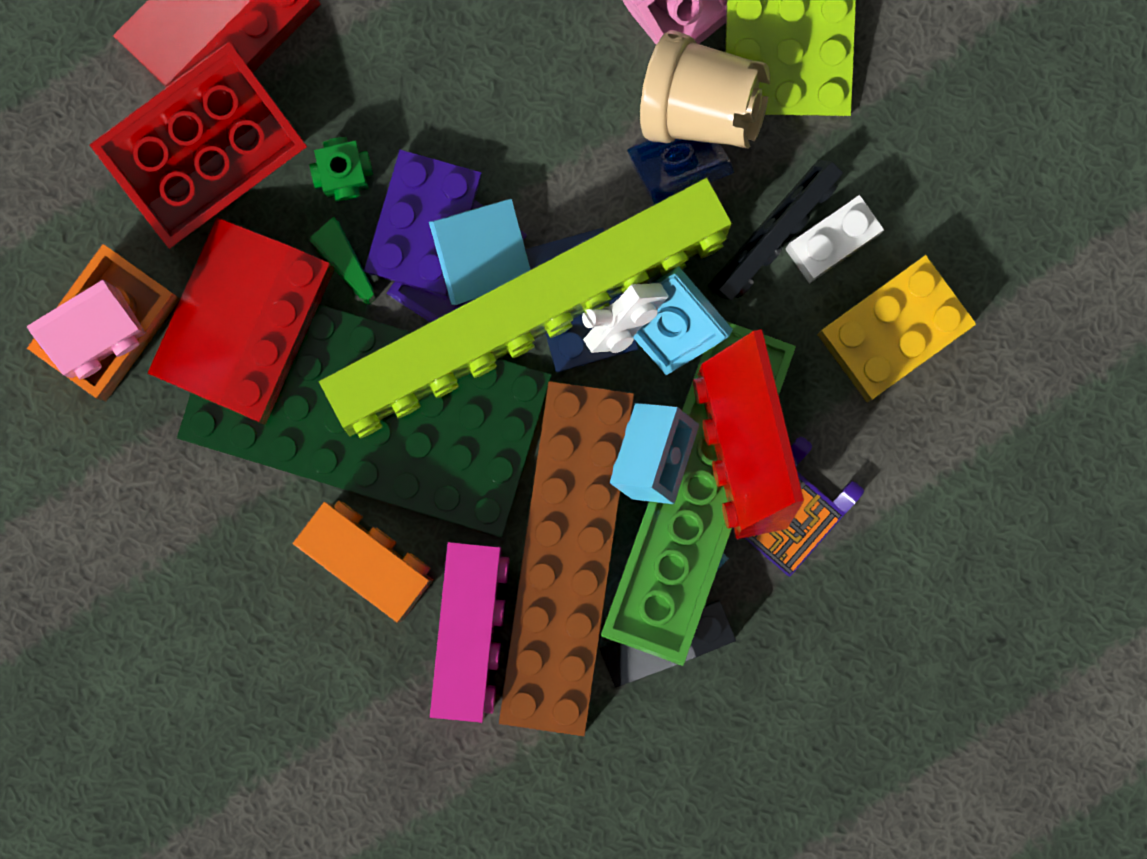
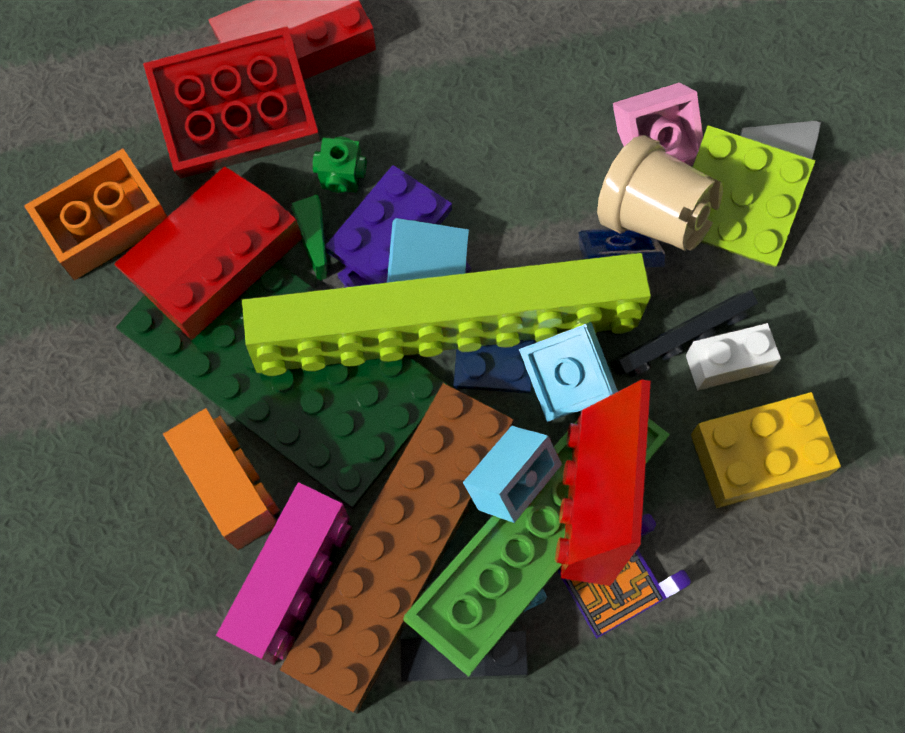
camera: 20 degrees right, 15 degrees down
(88, 330) = (72, 195): bright pink slope -> none
(620, 321) = (527, 348): white plate -> none

